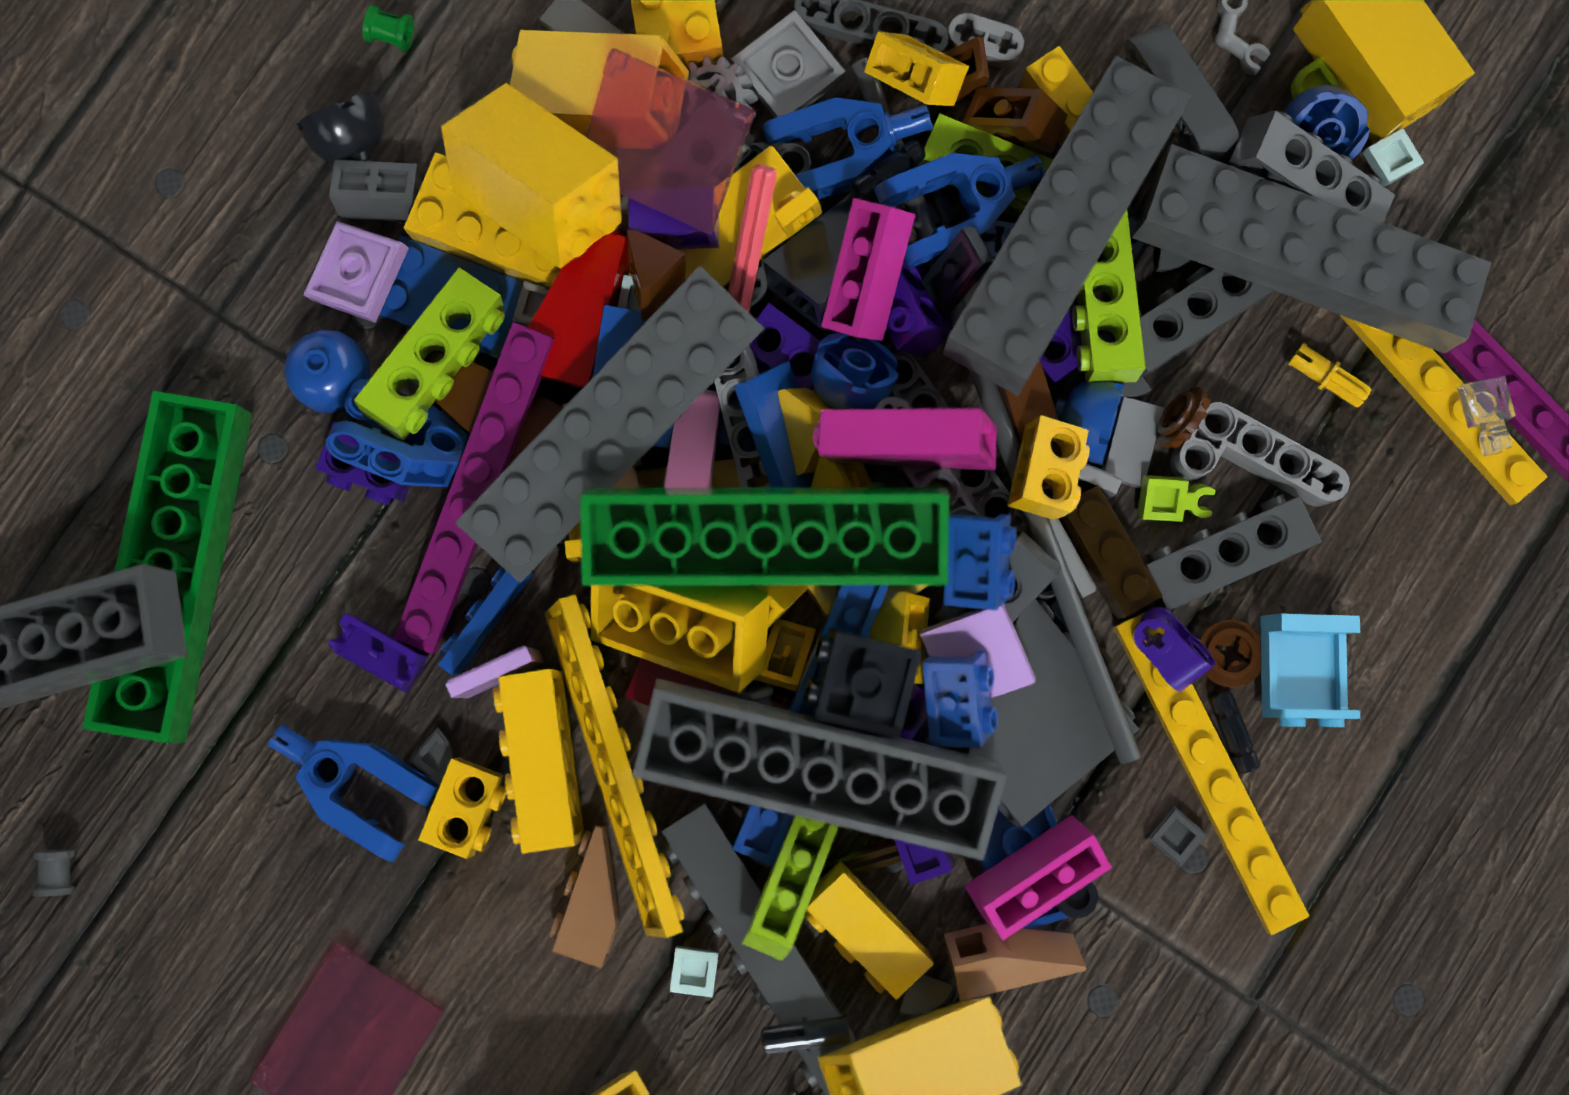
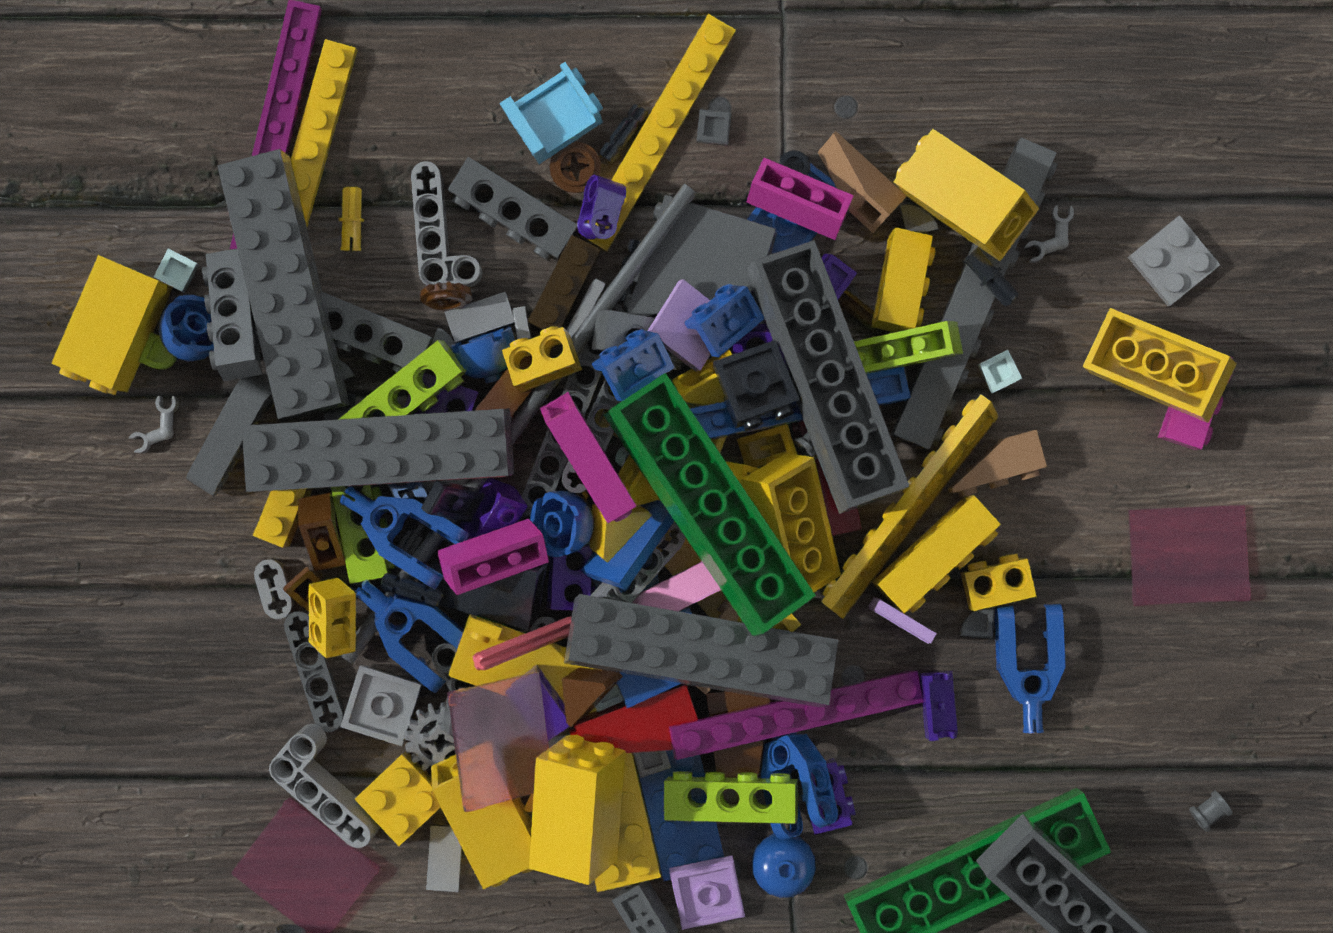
camera: 125 degrees left, 5 degrees up
(482, 620) = (873, 653): blue plate -> none
(1167, 498) = (501, 271): lime plate -> none
(1488, 406) = (308, 107): clear plate -> none

